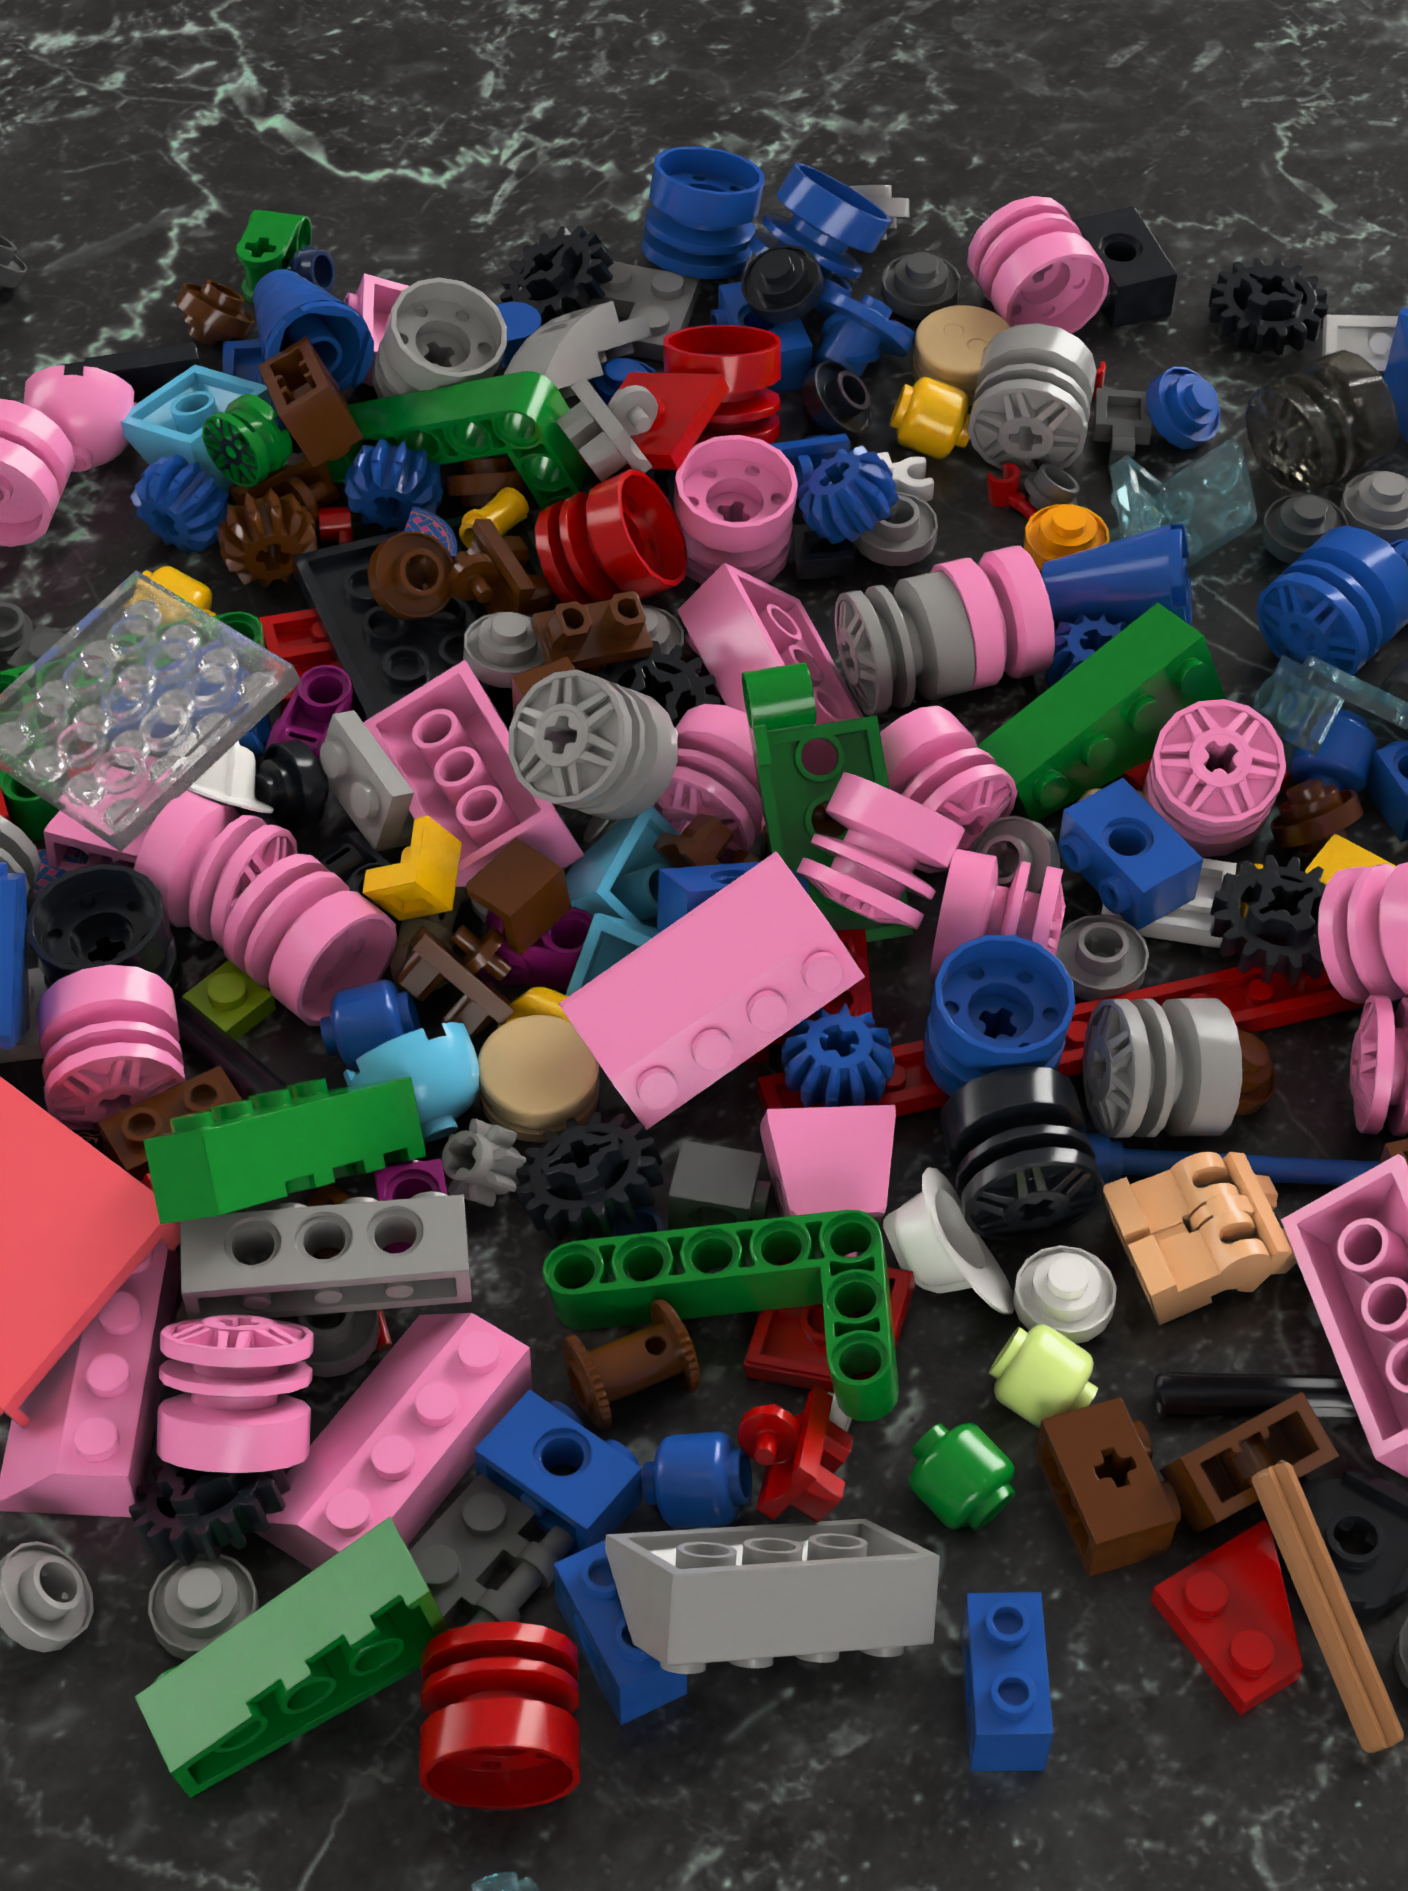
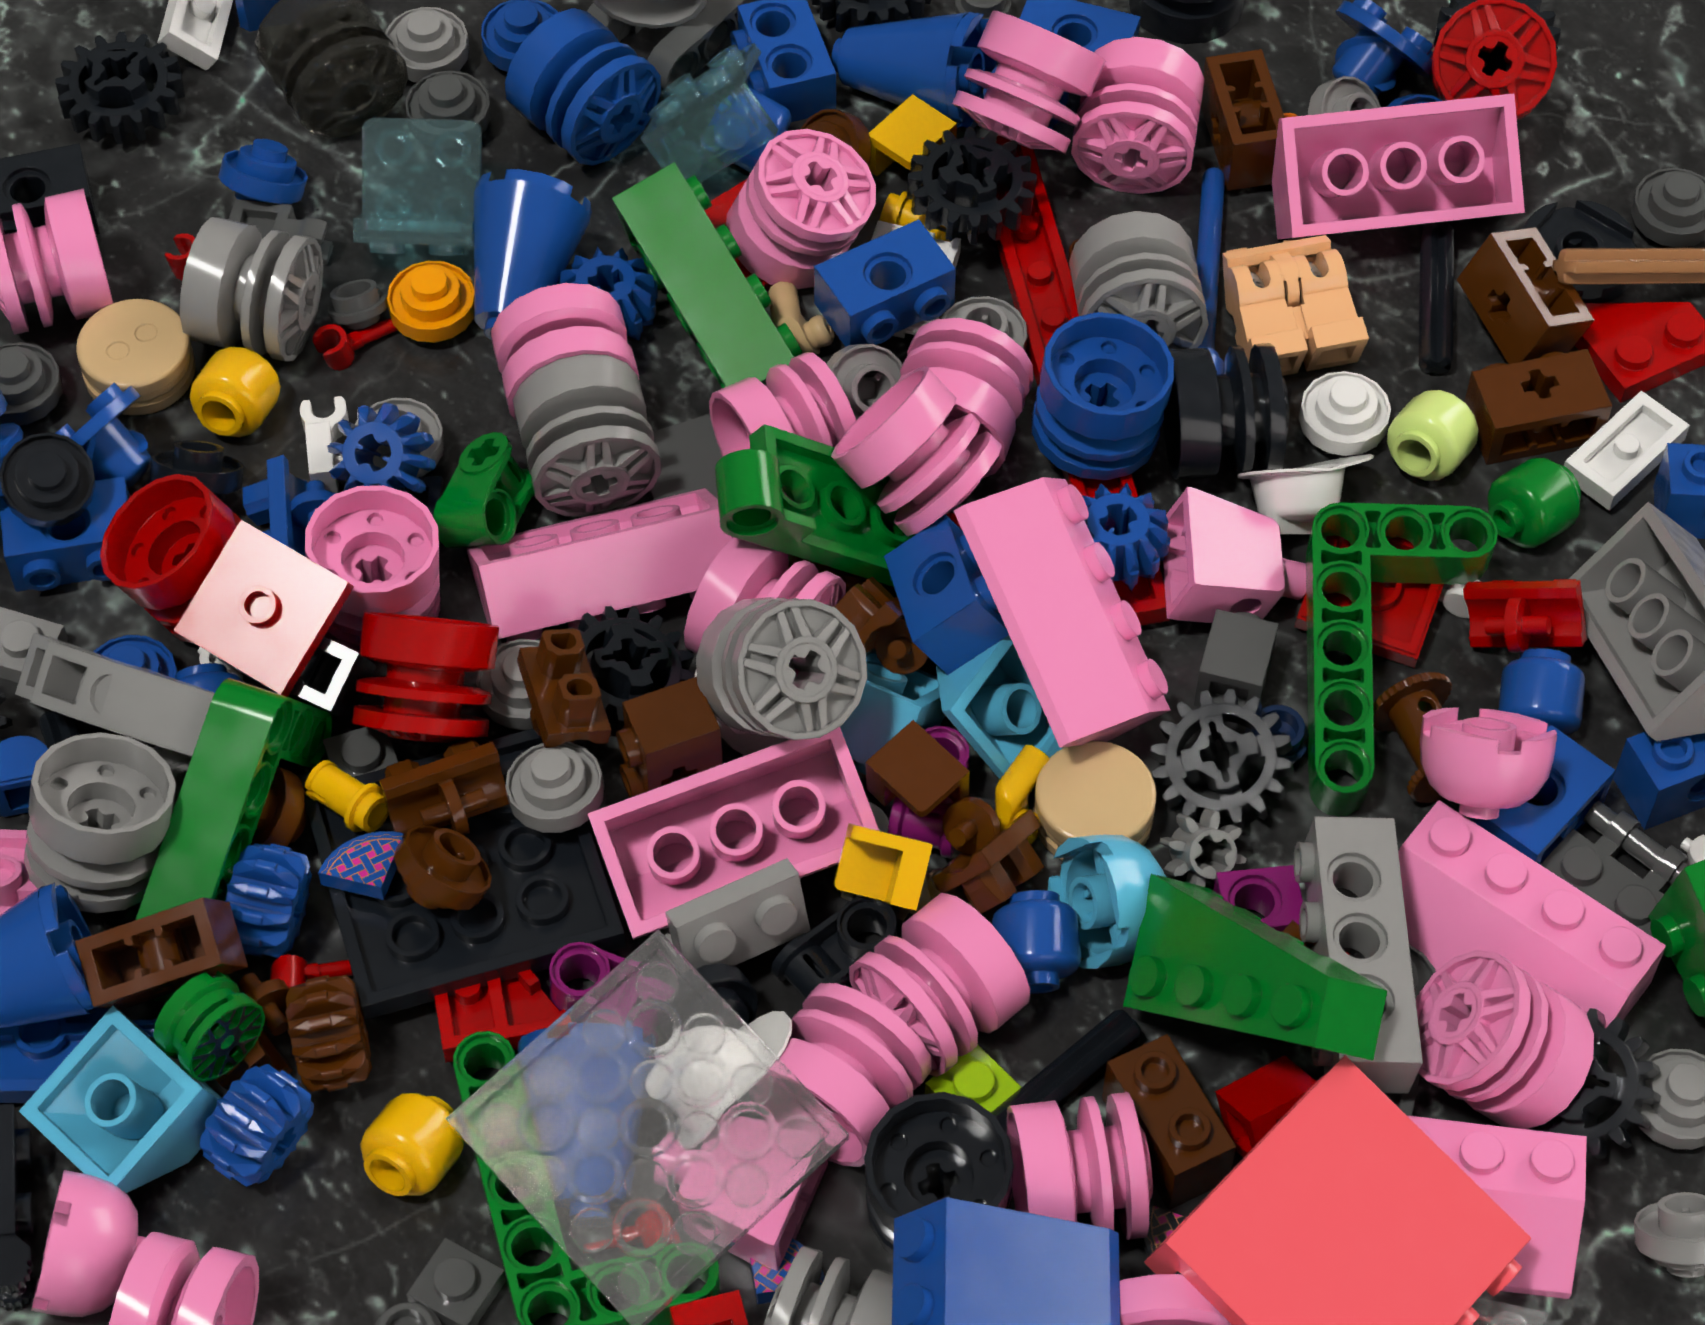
camera: 85 degrees left, 5 degrees up
(552, 1351) = (1486, 759): none -> bright pink cylinder
(604, 431) = (274, 647): light grey hips -> none
(836, 577) = (483, 495): none -> green piece
(1076, 1590) = (1625, 449): none -> white plate

